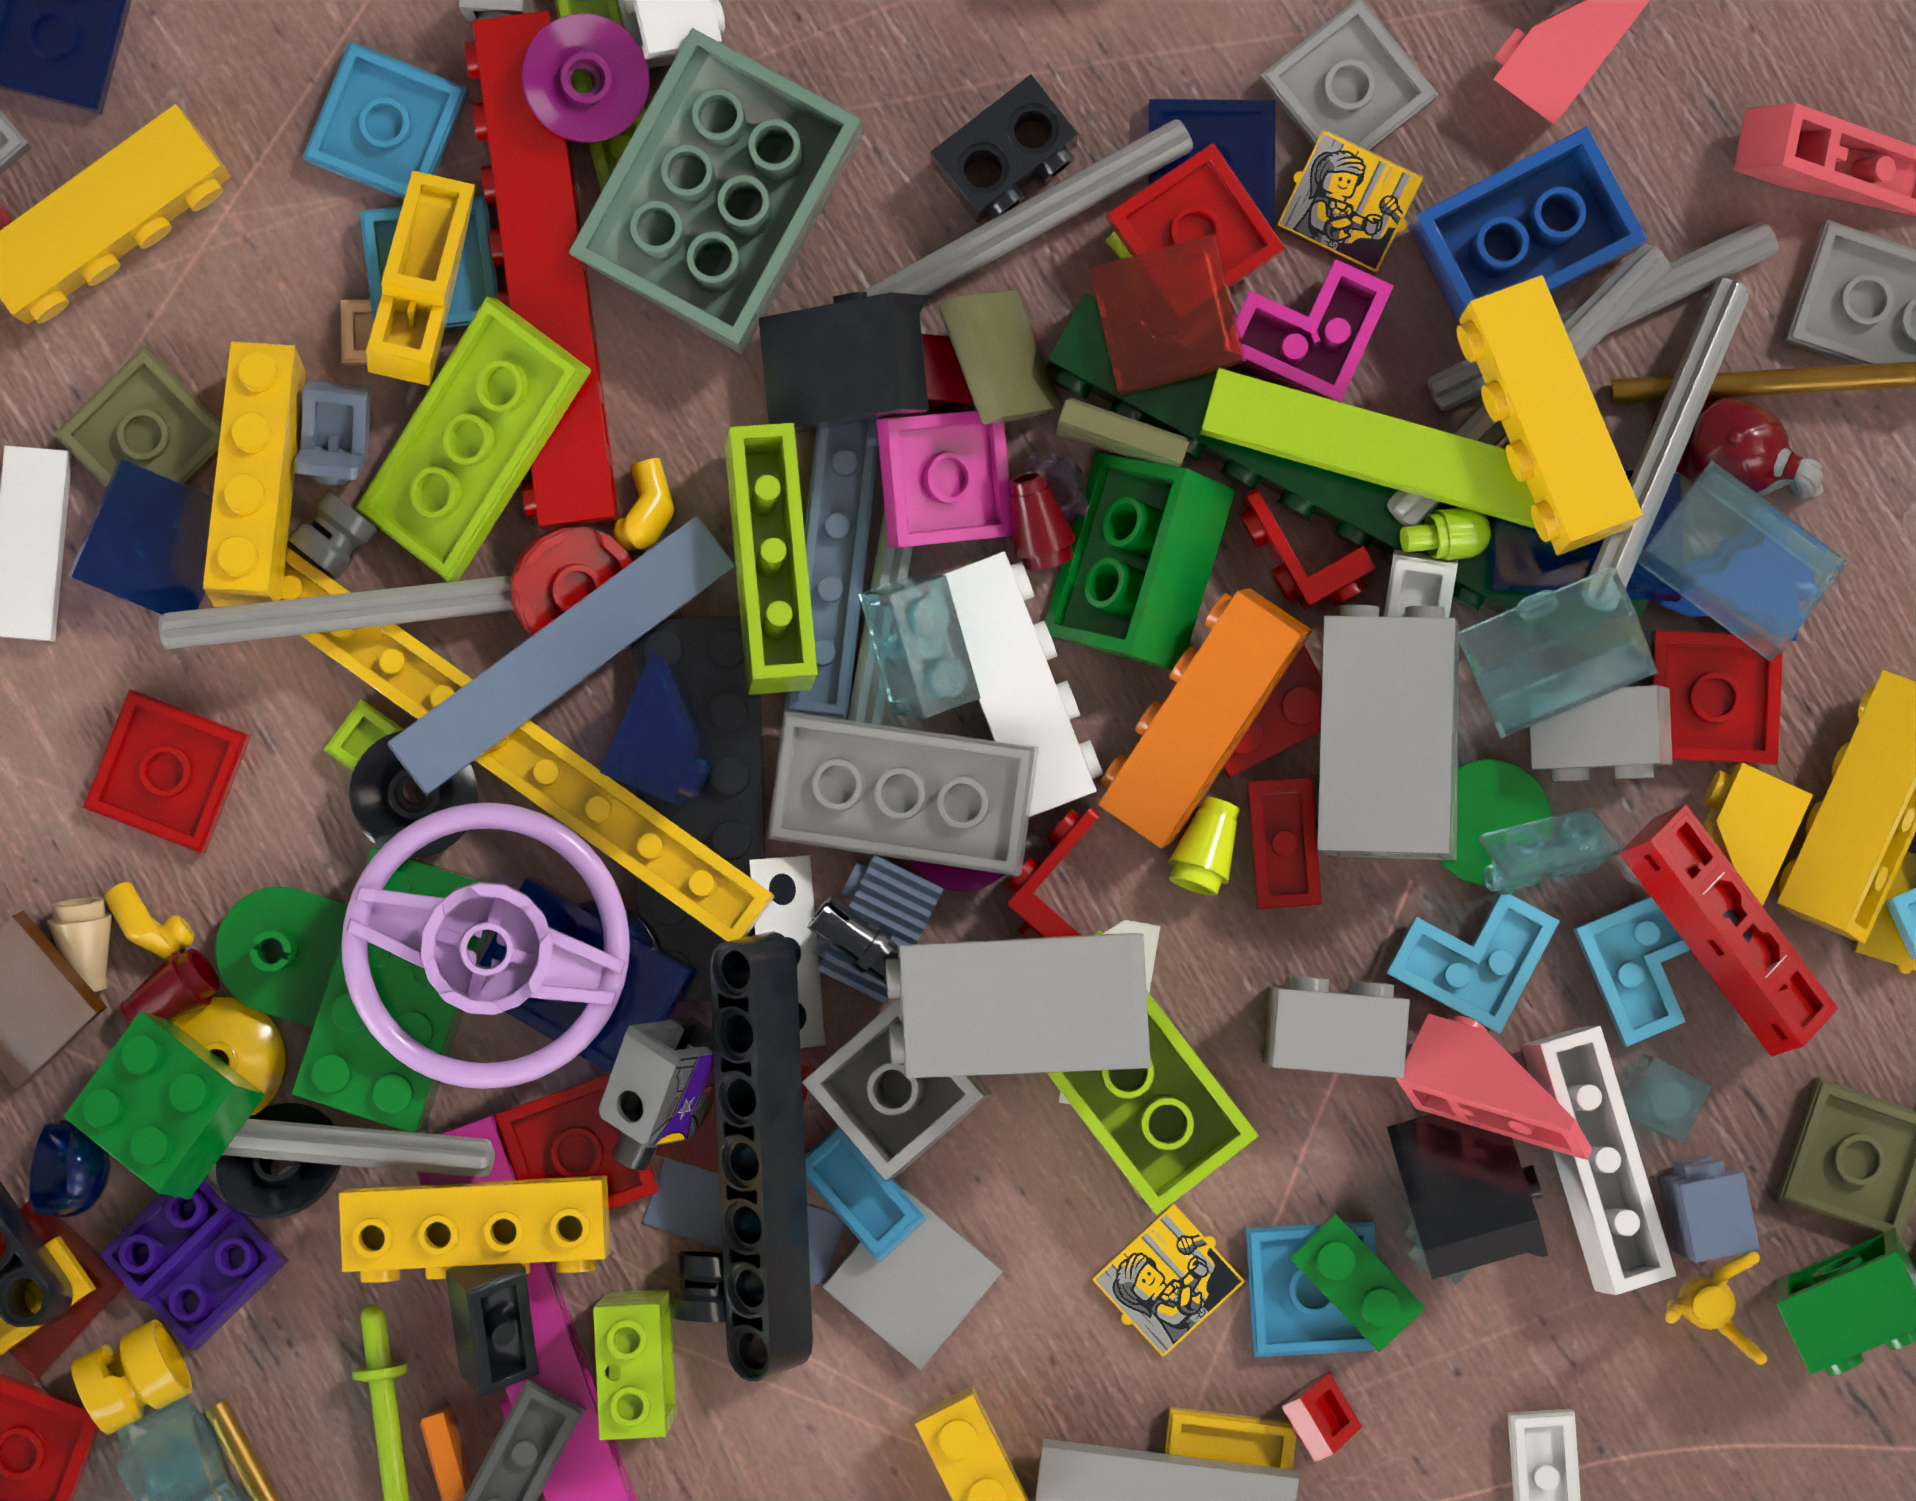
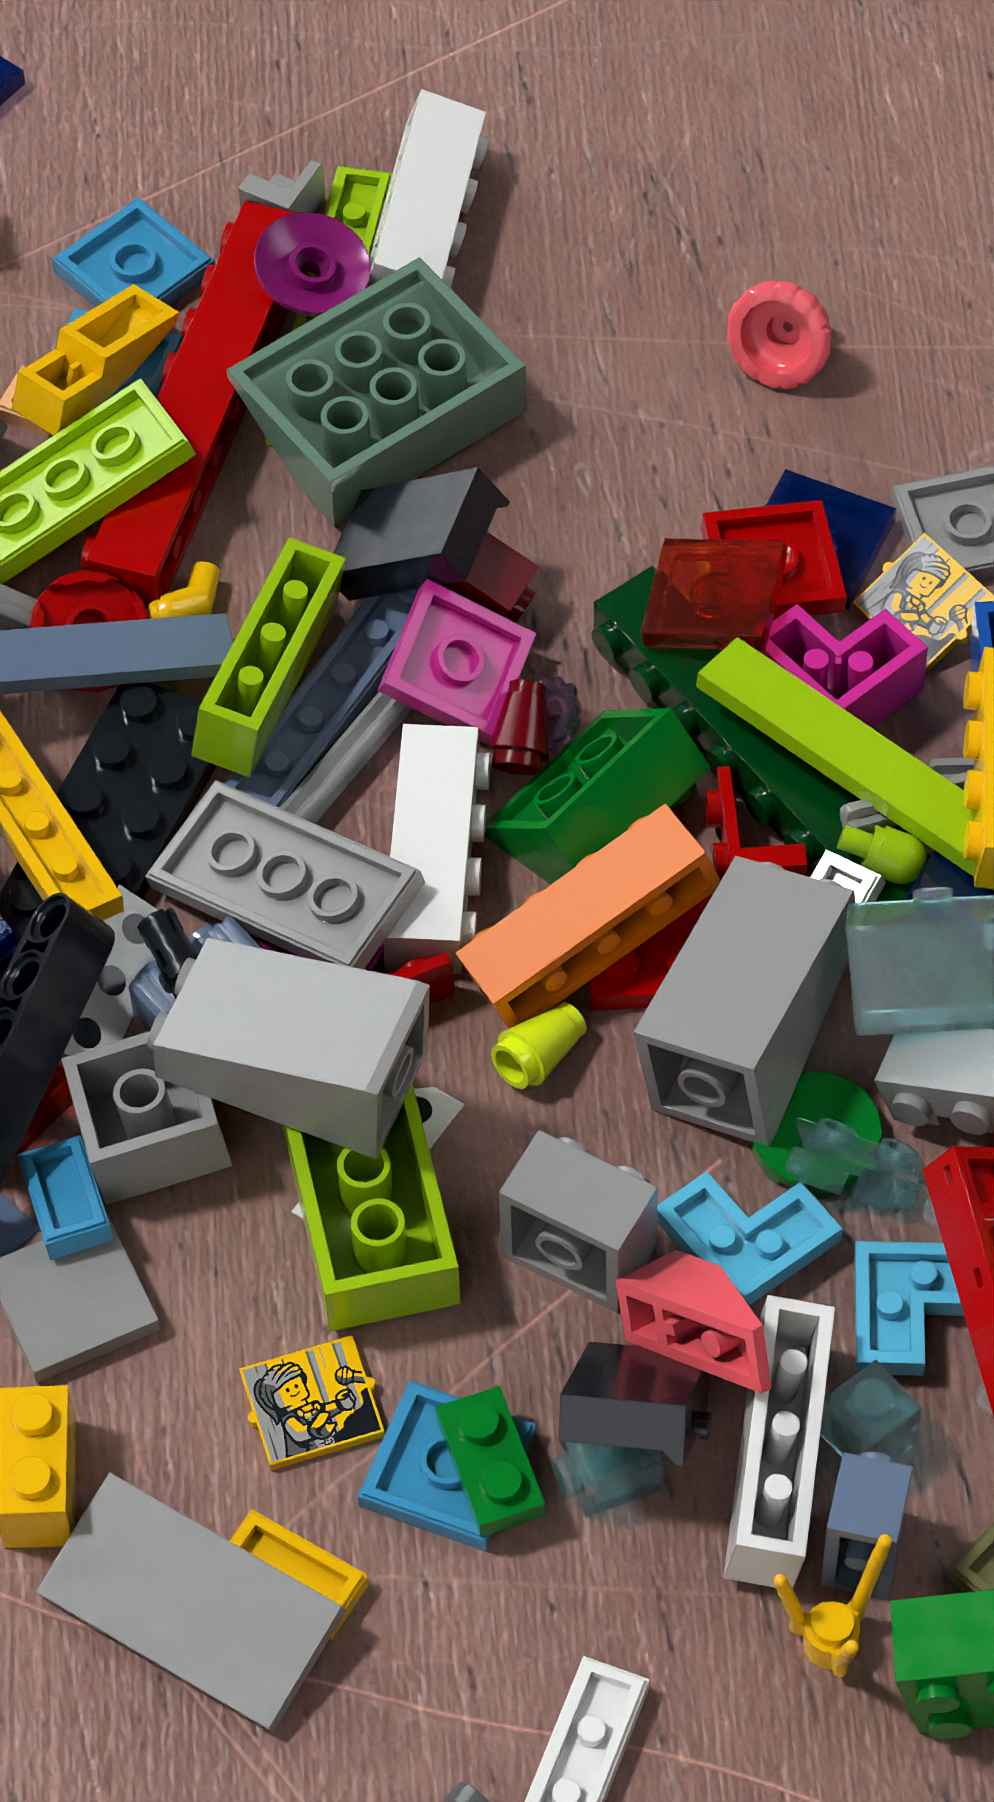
camera: 25 degrees right, 30 degrees down
(659, 738) = (88, 731): clear blue slope -> none
(919, 646) = (363, 769): clear light blue brick -> none
(994, 139) = (640, 455): black brick -> none
(999, 356) = (552, 585): olive tile -> none
(1040, 213) = (639, 510): light grey axle -> none
(1119, 434) = (619, 670): olive tile -> none
(1284, 843) = (607, 1075): red plate -> none
(1321, 1417) = (394, 1571): red plate -> none

